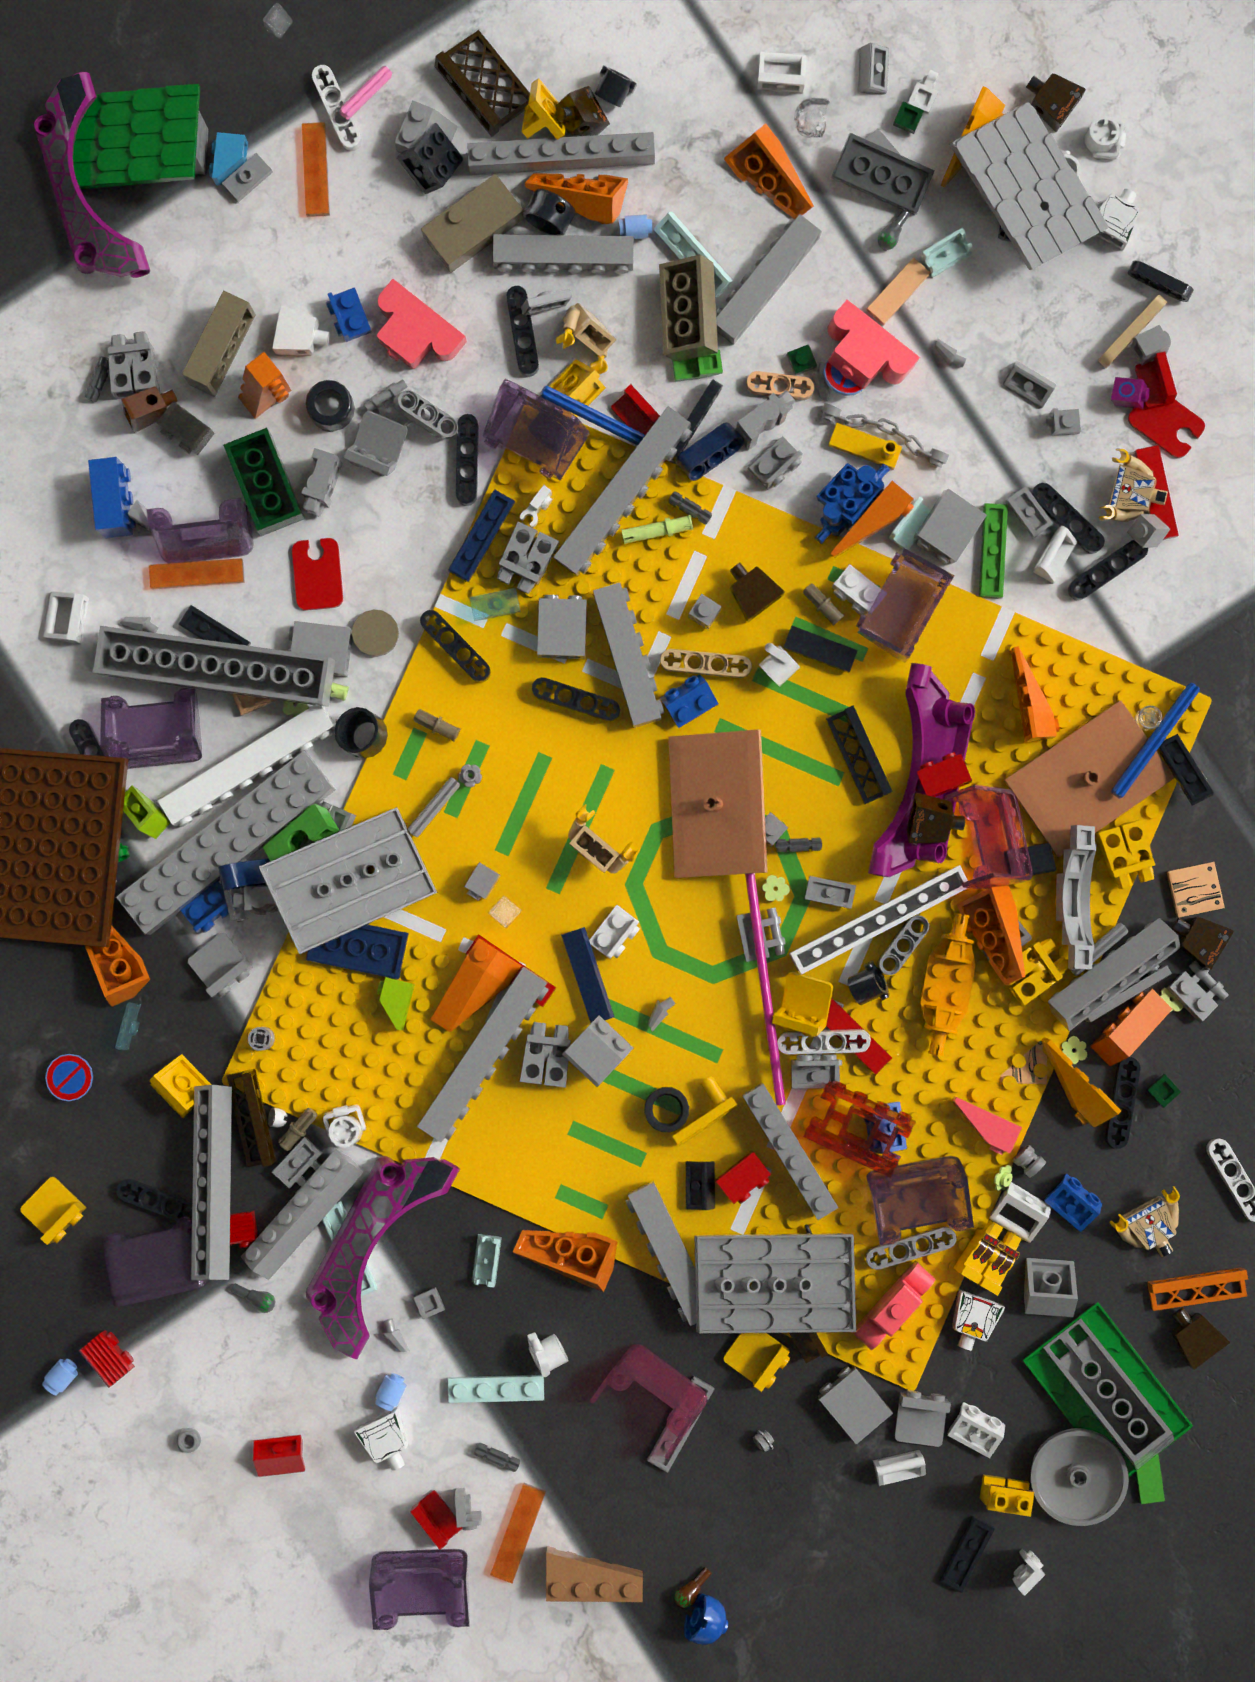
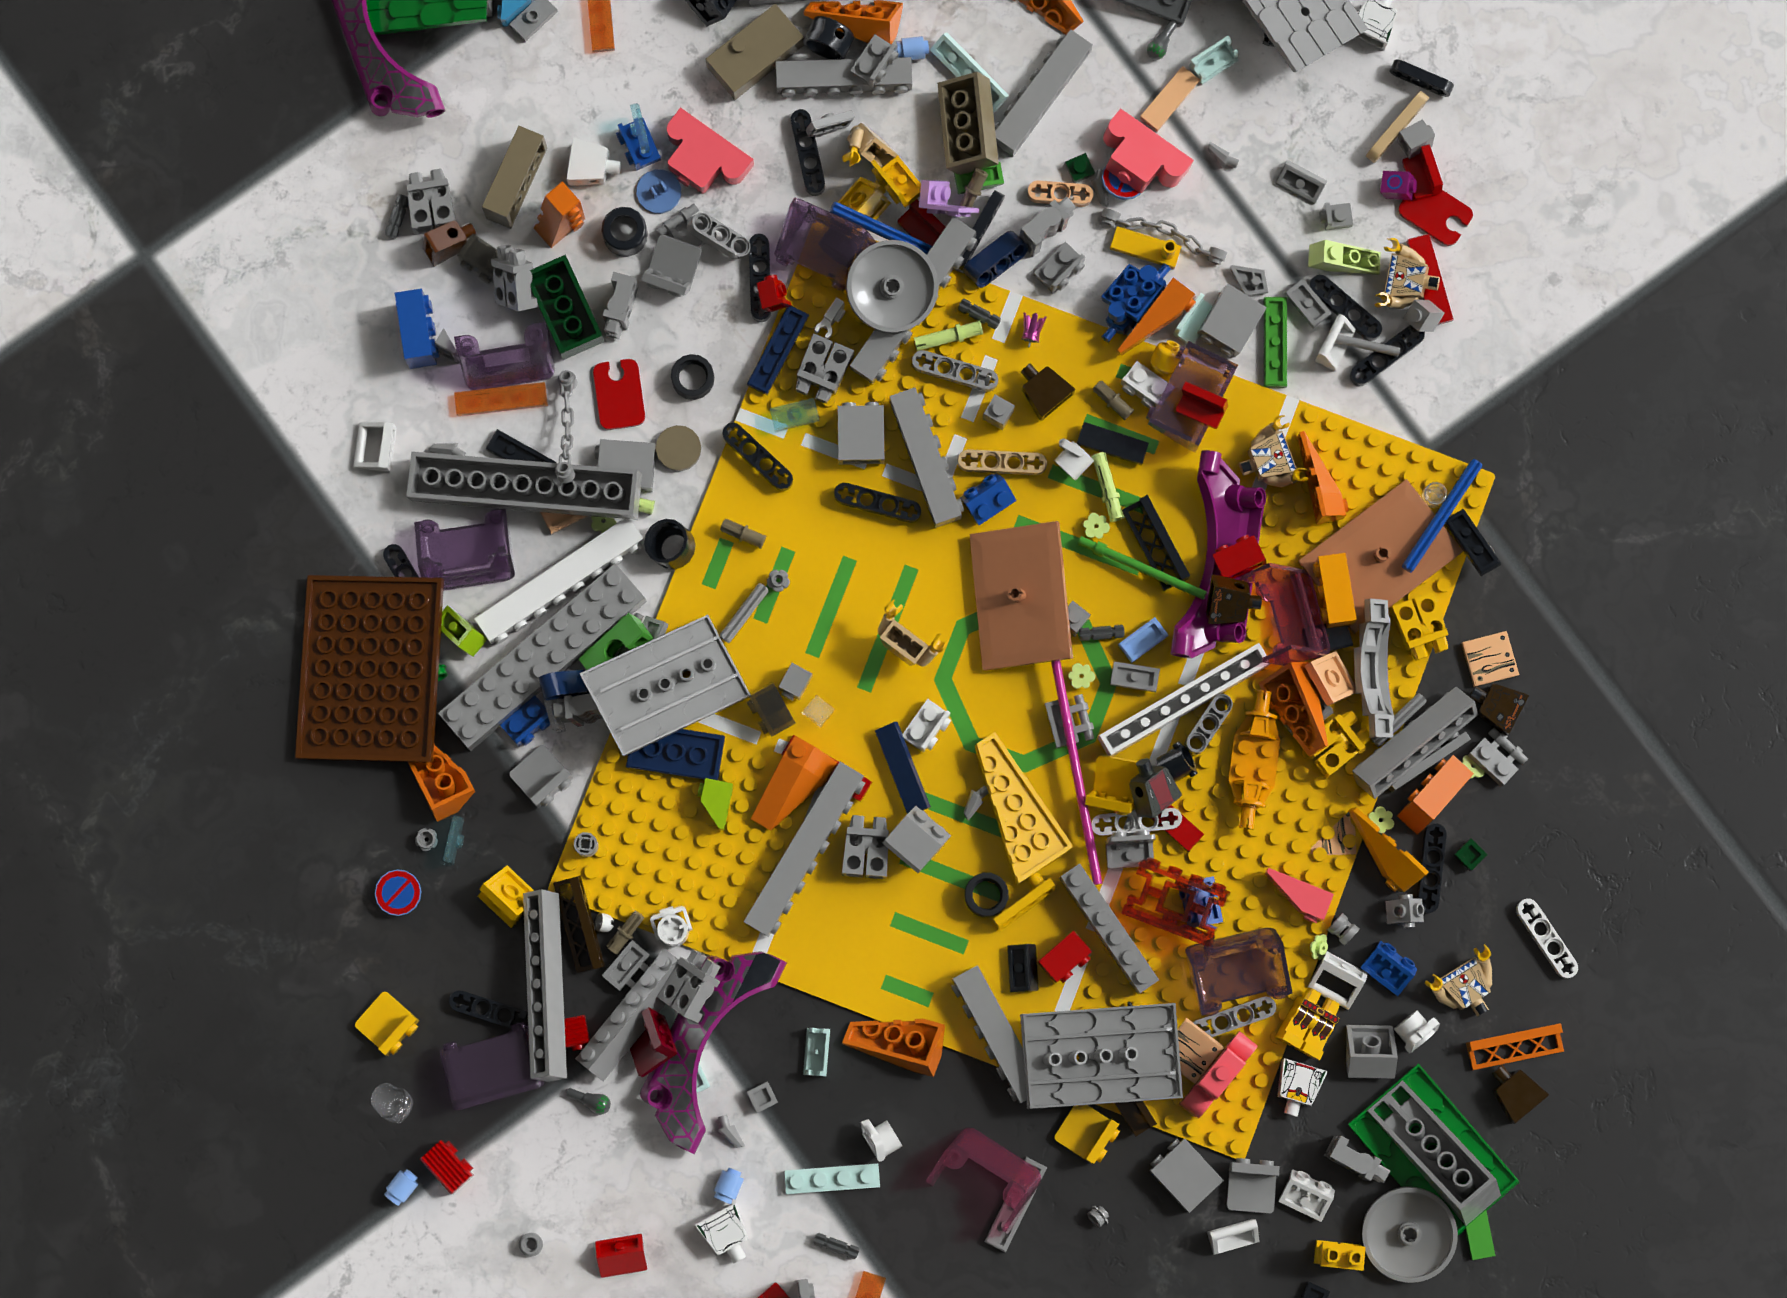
camera: 10 degrees left, 5 degrees down
(53, 1292) = (392, 1102): none -> clear helmet
(96, 1019) = (420, 839): none -> light grey plate
(211, 451) = (513, 279): none -> light grey hips
(264, 563) = (567, 382): none -> light grey piece
(321, 1246) = (654, 1045): none -> dark red bracket
(348, 298) = (638, 128): none -> clear light blue plate
(359, 1190) = (690, 985): none -> light grey hips
(367, 365) = (658, 191): none -> medium blue piece
(396, 542) = (692, 359): none -> black tyre
(455, 908) = (771, 709): none -> clear smoke brick
(478, 478) = (772, 294): none -> red brick
(594, 238) = (874, 60): none -> light grey bracket
(600, 476) = (892, 286): none -> light grey dish
(613, 366) = (898, 181): none -> yellow bracket
(650, 386) = (935, 196): none -> lavender bracket
(663, 562) = (953, 374): none -> light grey beam
(690, 378) = (974, 187): none -> dark tan axle
(709, 1037) = (1025, 823): none -> yellow wing
(744, 525) = (1032, 328): none -> flat silver piece
(797, 727) = (1100, 521): none -> yellowish green plant
(802, 758) = (1101, 549): none -> bright green bar
(815, 703) = (1110, 496): none -> yellowish green pin
(840, 854) = (1143, 640): none -> light blue tile
(842, 1012) = (1152, 789): none -> pearl dark grey torso
(872, 1279) = (1196, 1050): none -> light nougat tile
(878, 563) = (1164, 358): none -> yellow head
(914, 615) = (1202, 405): none -> red panel
(971, 485) = (1250, 280): none -> light grey piece
(983, 672) = (1272, 458): none -> torso
(1028, 1399) = (1365, 1165): none -> light grey hips
(1031, 904) = (1331, 678): none -> light nougat plate
(1041, 813) = (1335, 590): none -> light orange brick
(1068, 466) = (1343, 258): none -> yellowish green slope
(1089, 559) = (1367, 345): none -> light grey bar
(1093, 1146) = (1405, 911): none -> light grey brick
(1097, 1269) = (1416, 1030): none -> white piece

